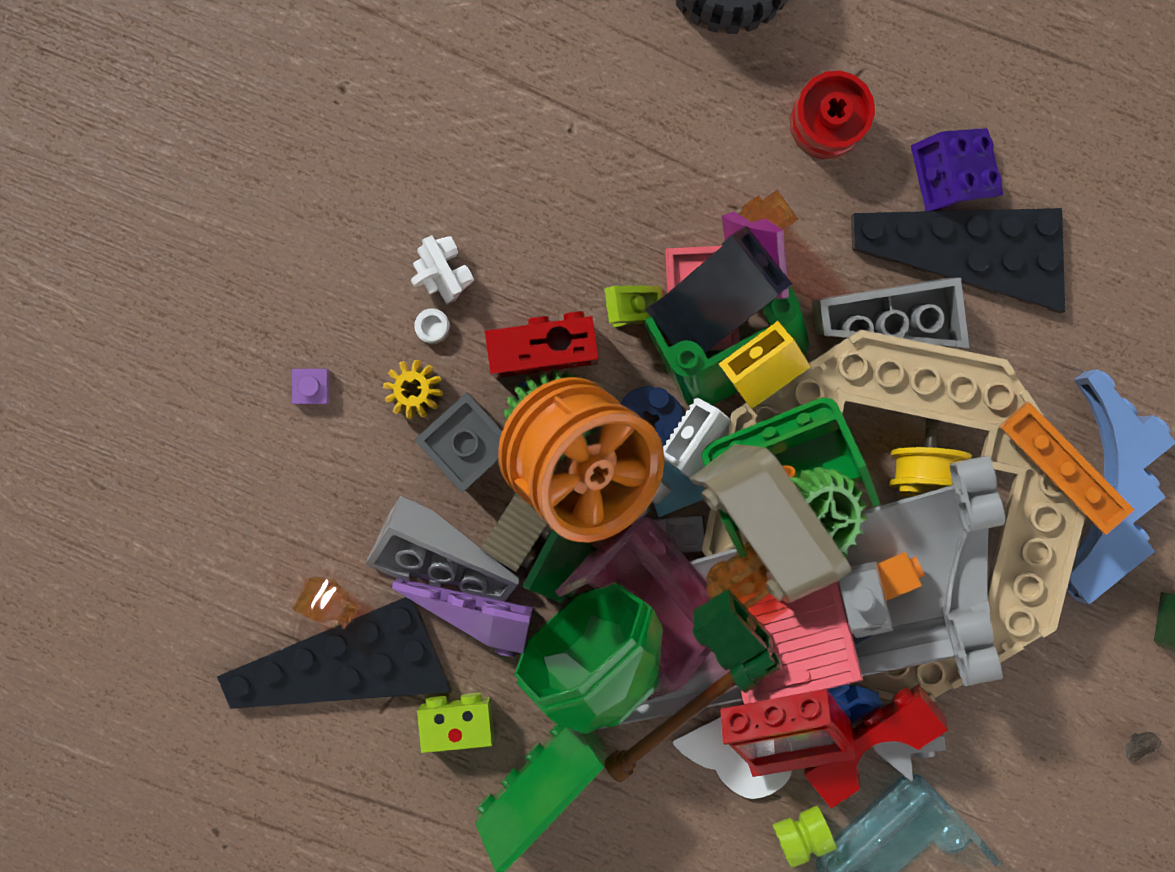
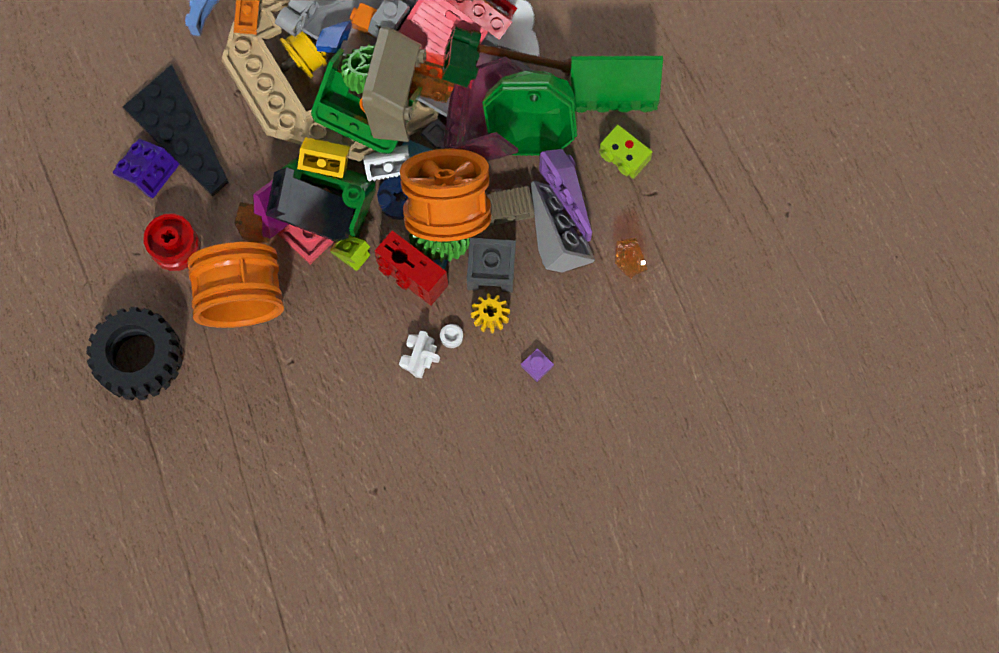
camera: 135 degrees left, 15 degrees down
(371, 658) = (630, 213): black wing -> none
(555, 564) = (508, 172): dark green slope -> none
(698, 123) = (235, 285): none -> orange wheel
(906, 510) = (331, 38): none -> slope
(918, 312) = (238, 127): light grey wedge -> none

